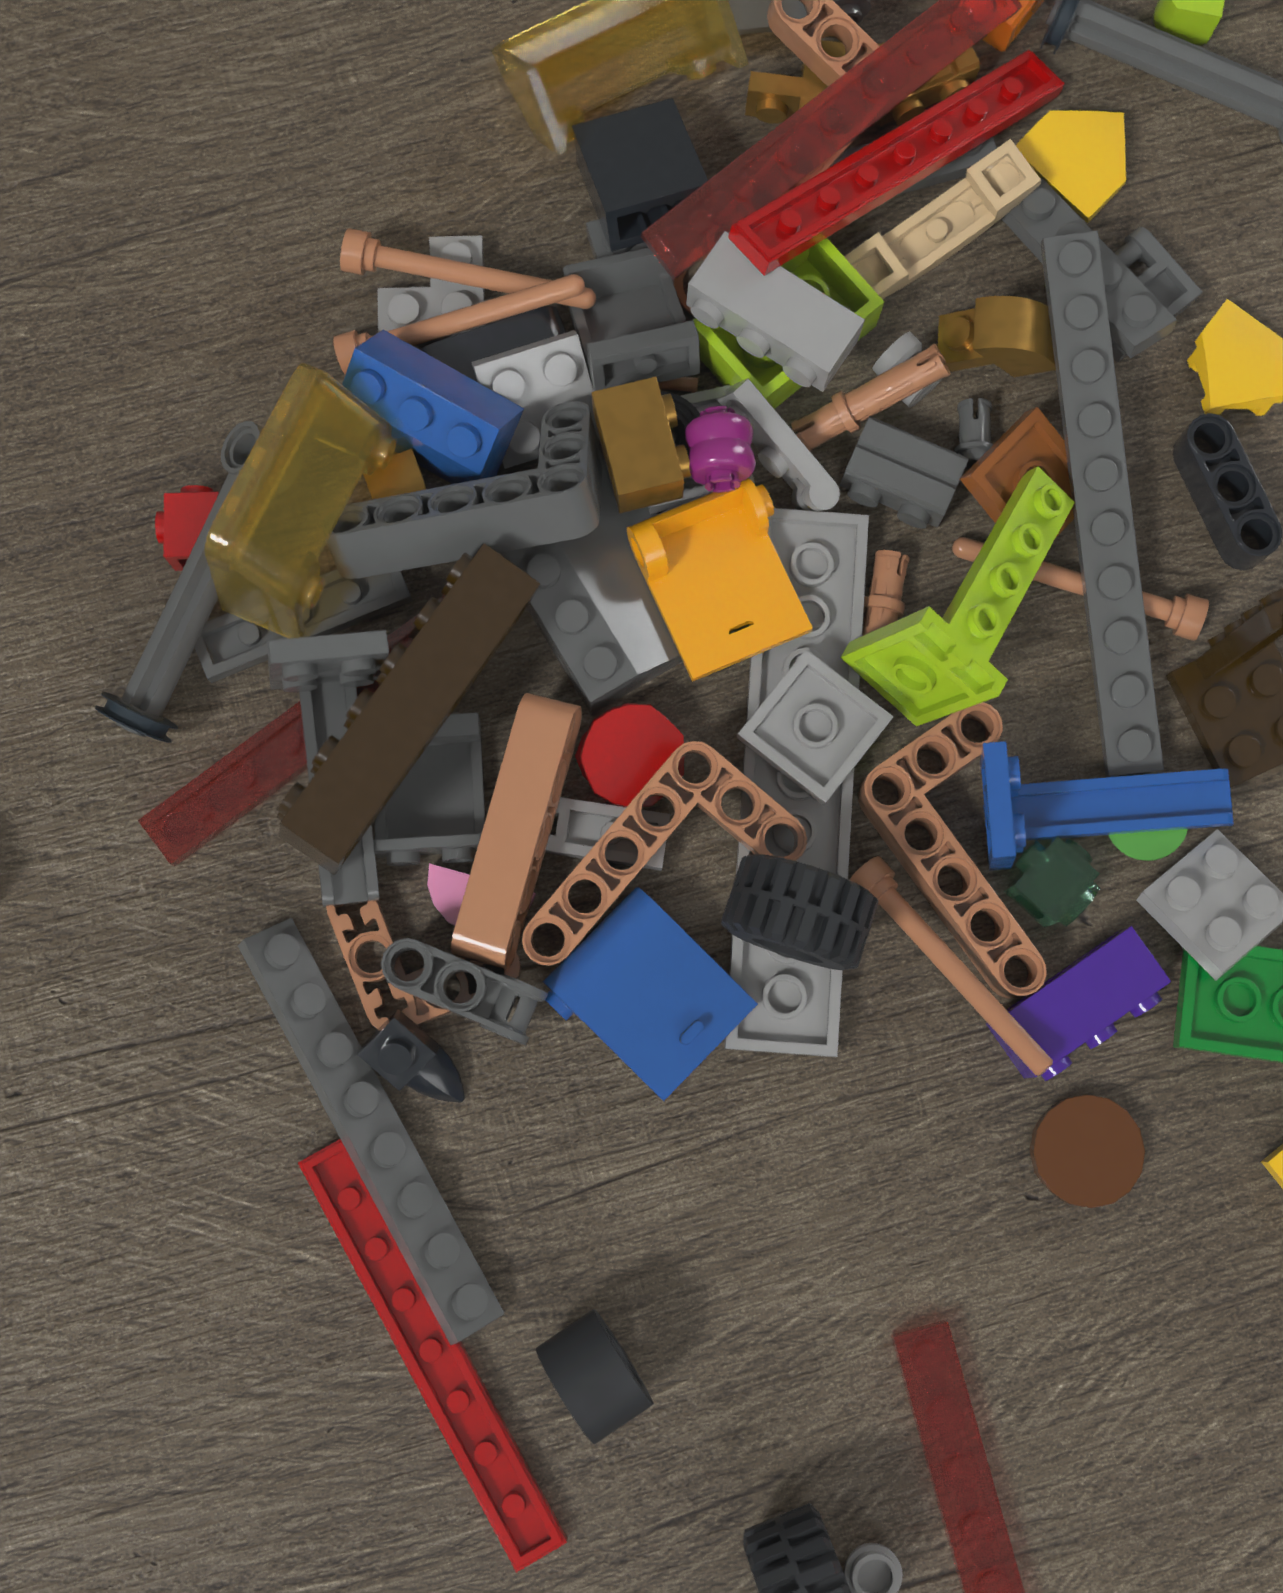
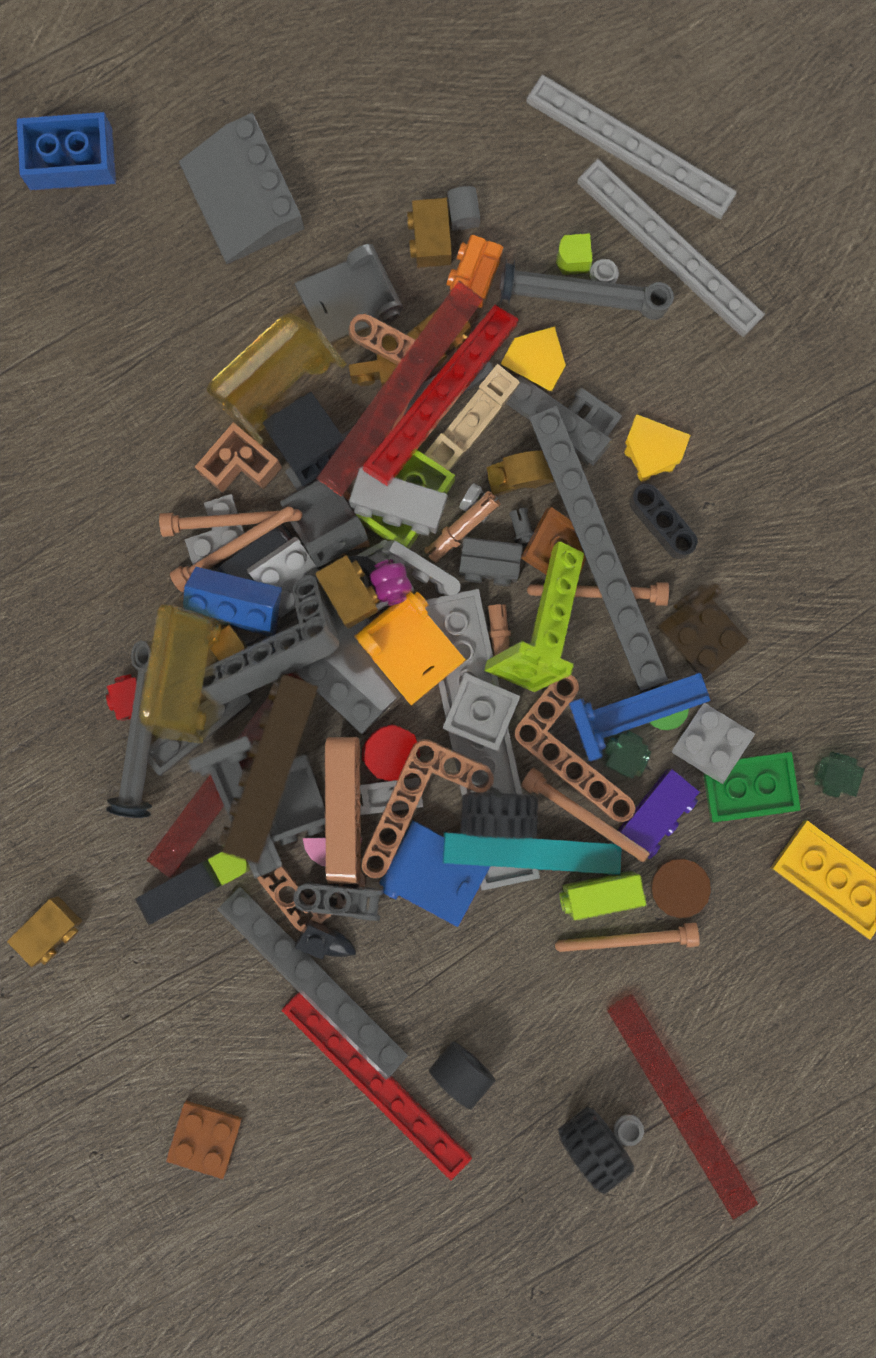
camera: 10 degrees left, 5 degrees up
(85, 1361) = (204, 1139): none -> dark orange plate
(180, 893) = (178, 892): none -> black beam
(283, 873) = (228, 867): none -> lime piece
(512, 167) = (236, 453): none -> nougat brick
(836, 1006) = (532, 854): none -> teal tile
(945, 1117) = (602, 895): none -> lime brick
(1074, 1239) = (685, 935): none -> nougat piece
(1235, 43) = (604, 271): none -> light grey plate

